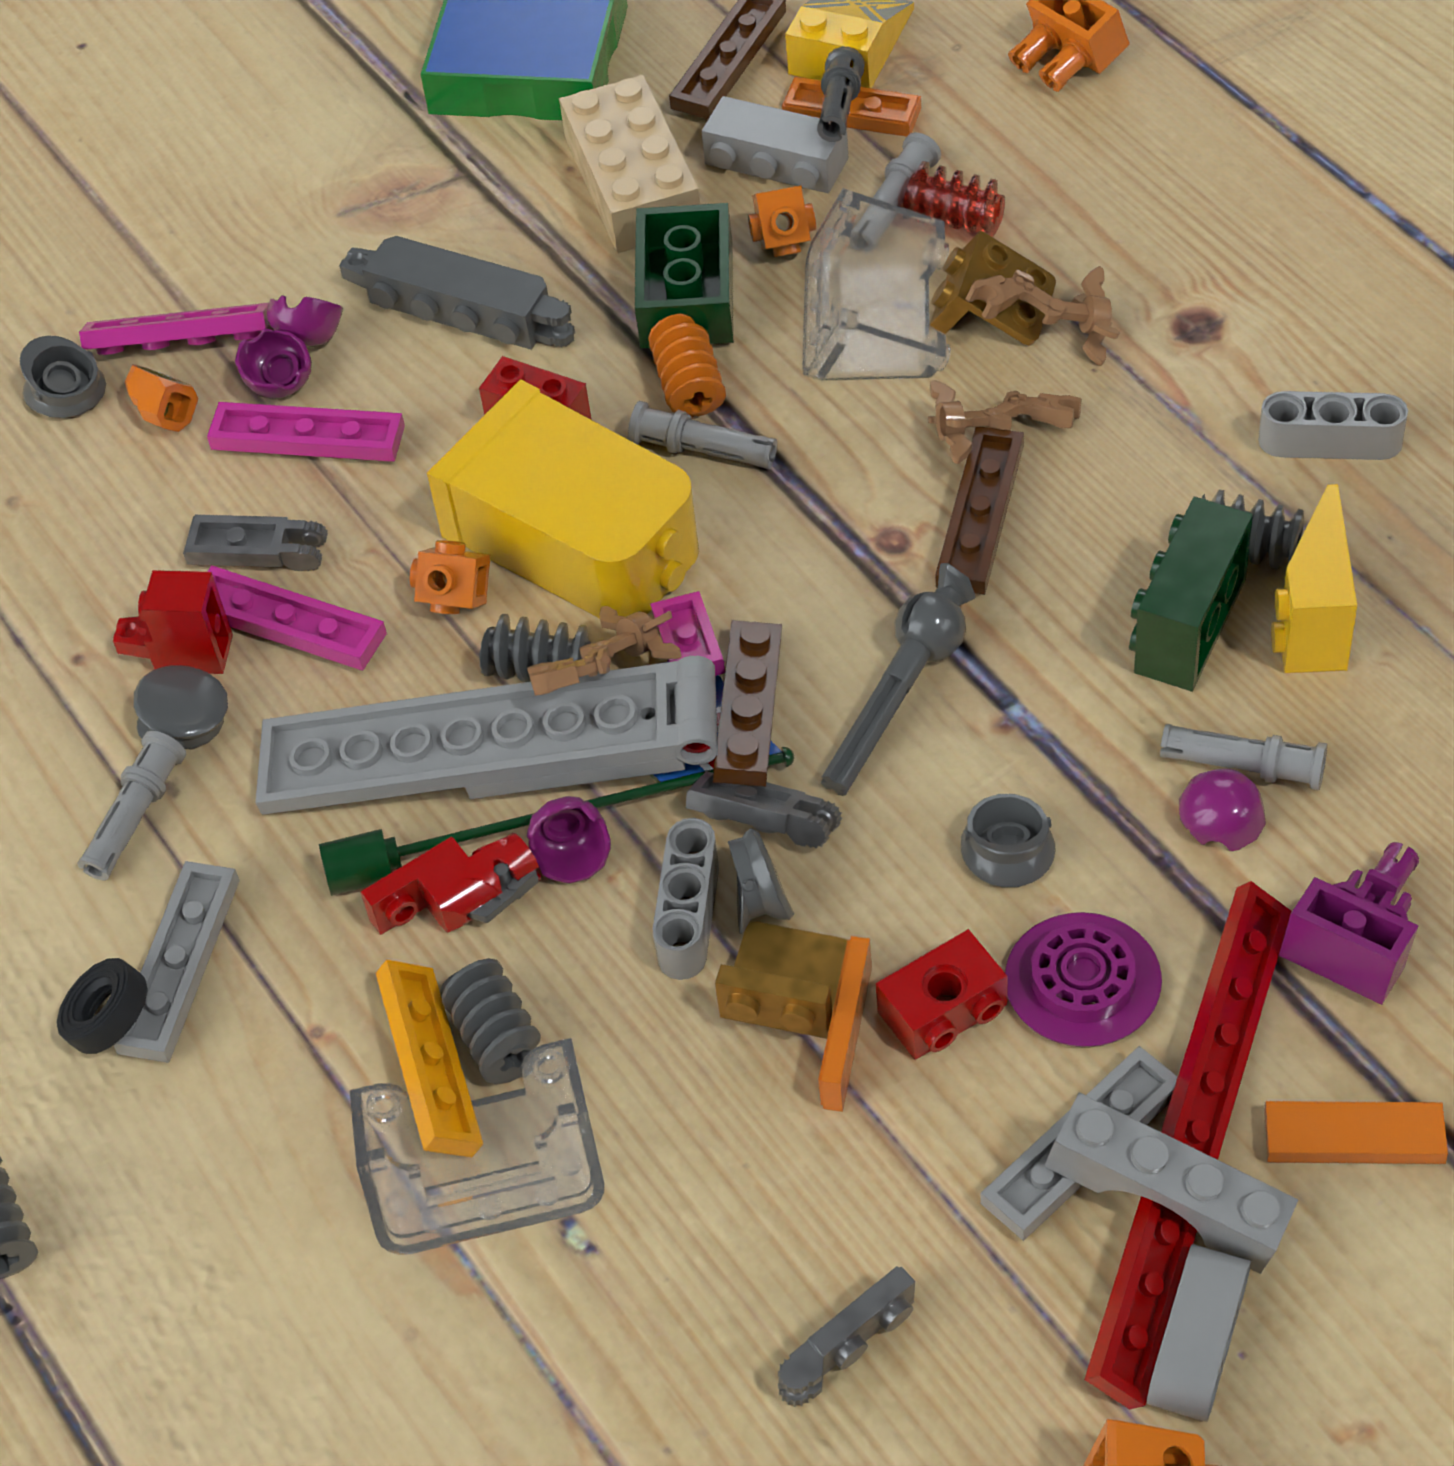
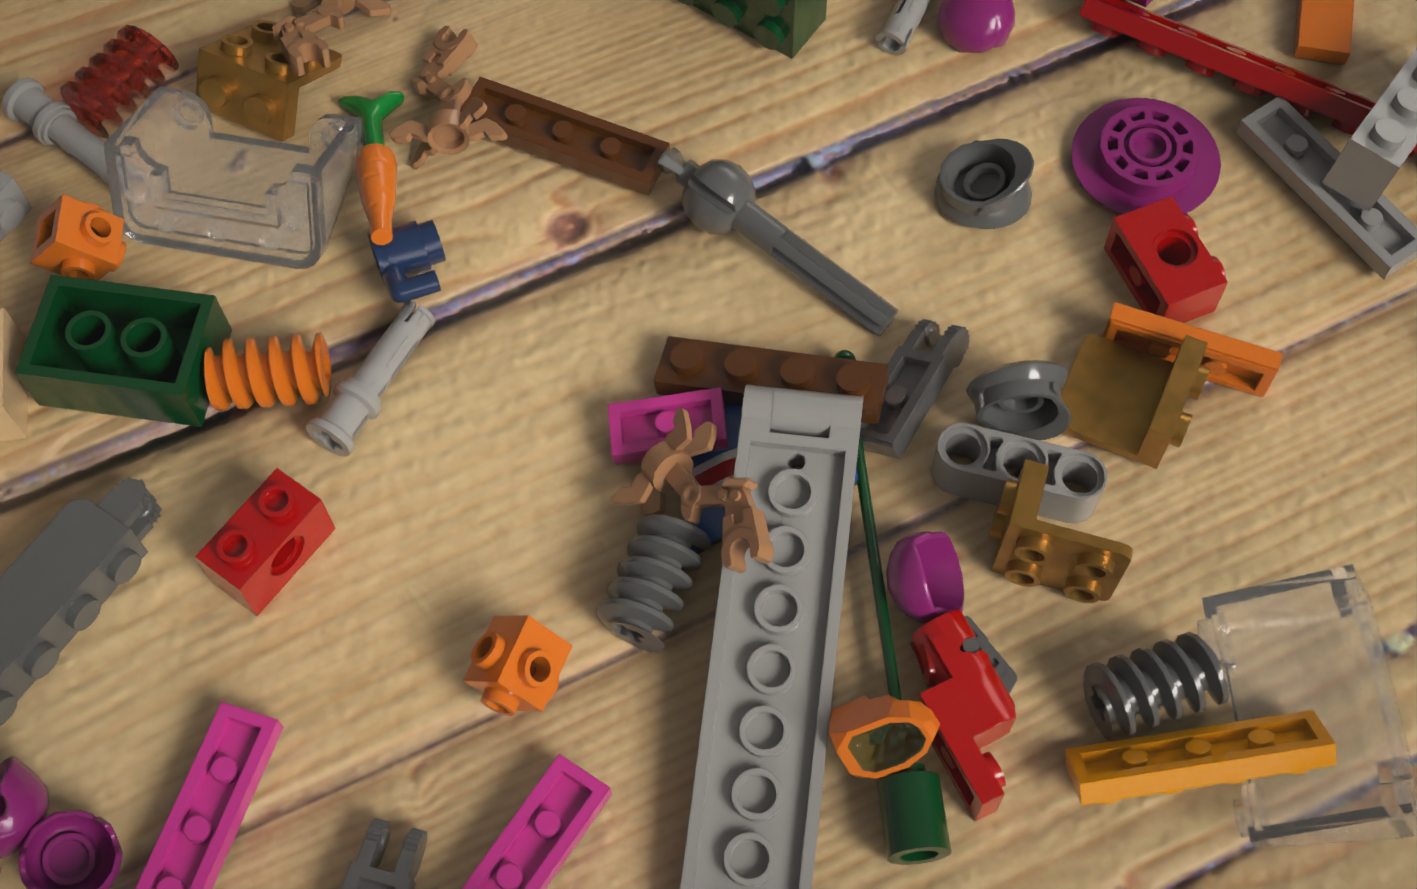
camera: 85 degrees left, 10 degrees up
(413, 812) = (881, 734): none -> orange rock
(567, 504) = (454, 511): yellow piece -> none
(612, 890) = (1049, 554): none -> pearl gold bracket
(822, 423) = (410, 253): none -> dark blue piece
(904, 382) = (375, 162): none -> orange piece

